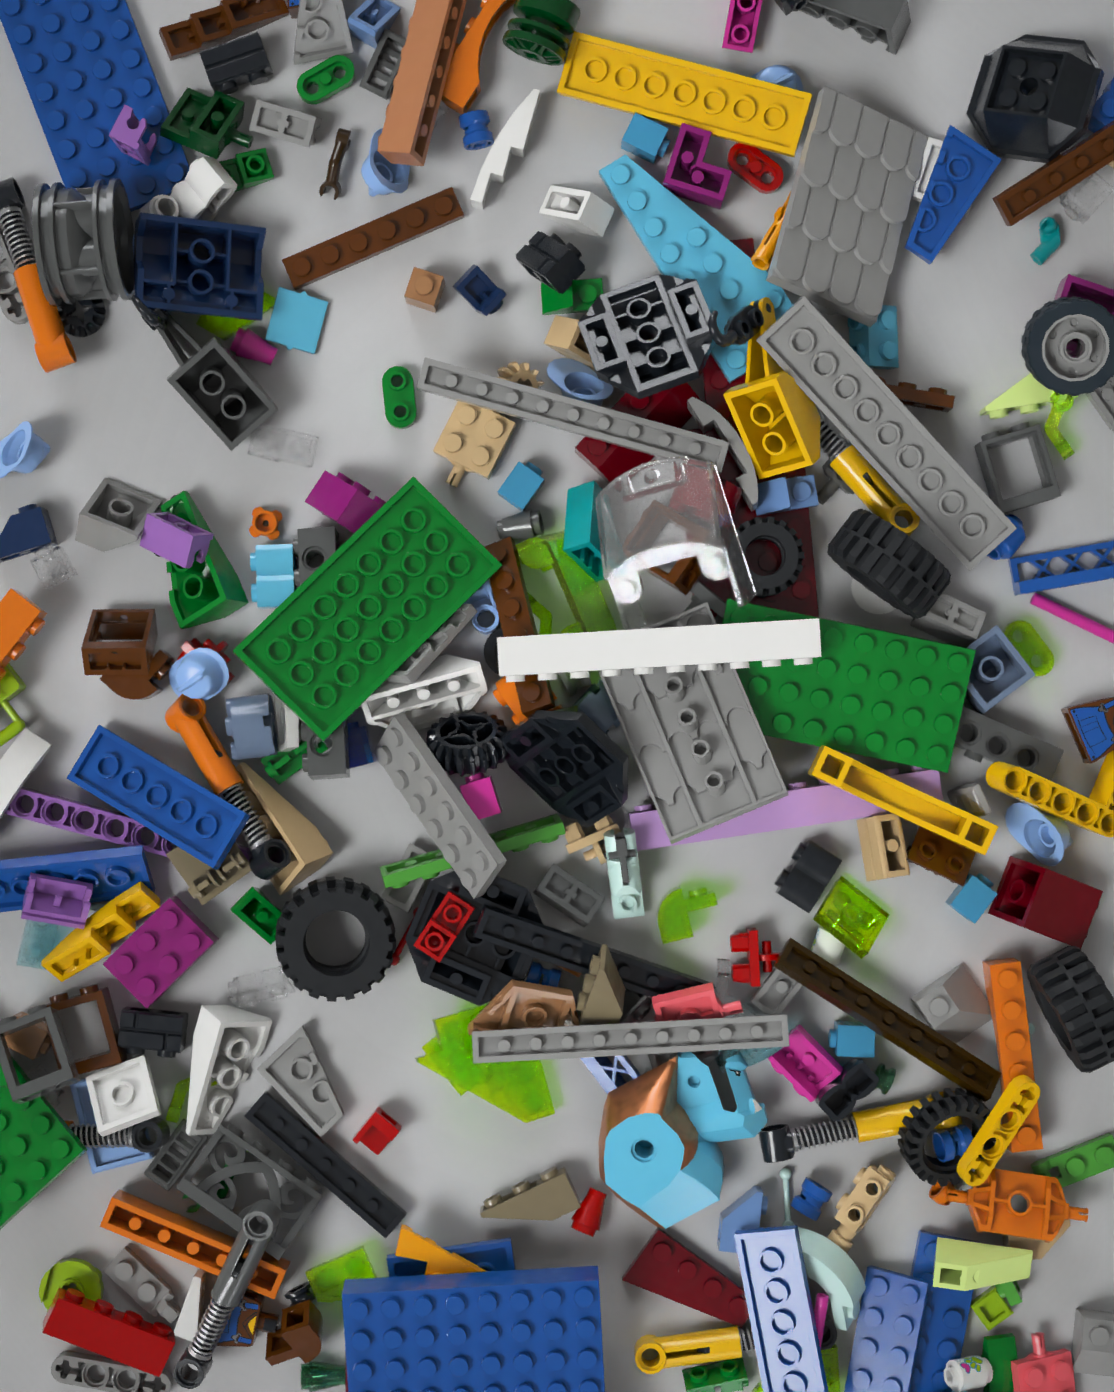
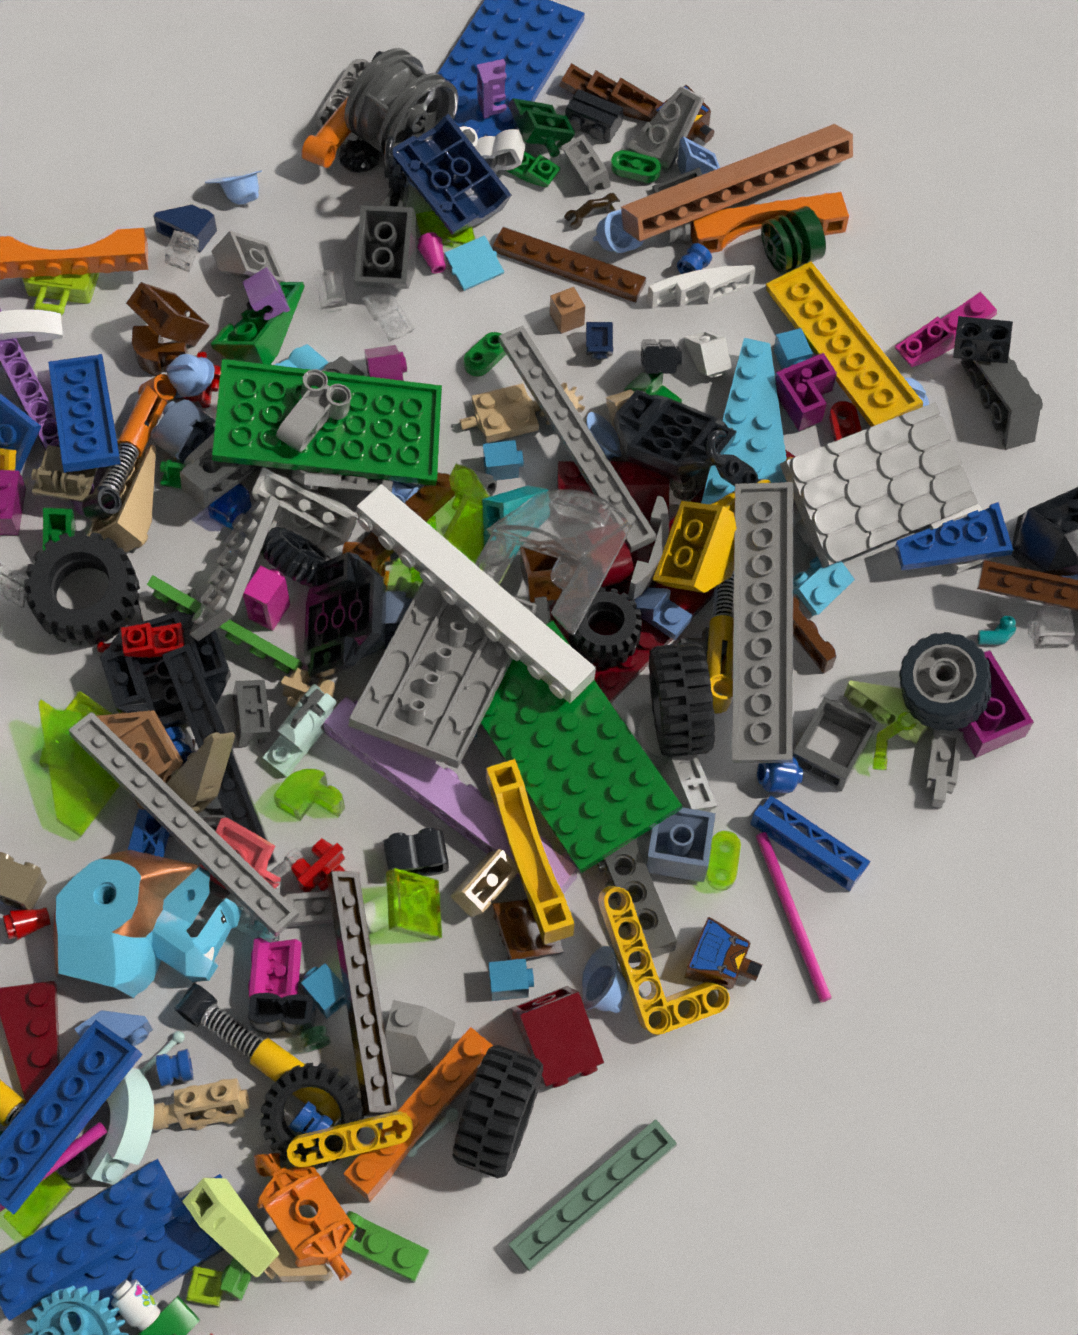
camera: 45 degrees right, 25 degrees down
(208, 470) = (330, 289): none -> clear slope
(261, 515) = (328, 338): orange plate -> none
(357, 622) = (313, 410): none -> light grey piece
(970, 798) = (580, 909): light grey slope -> none

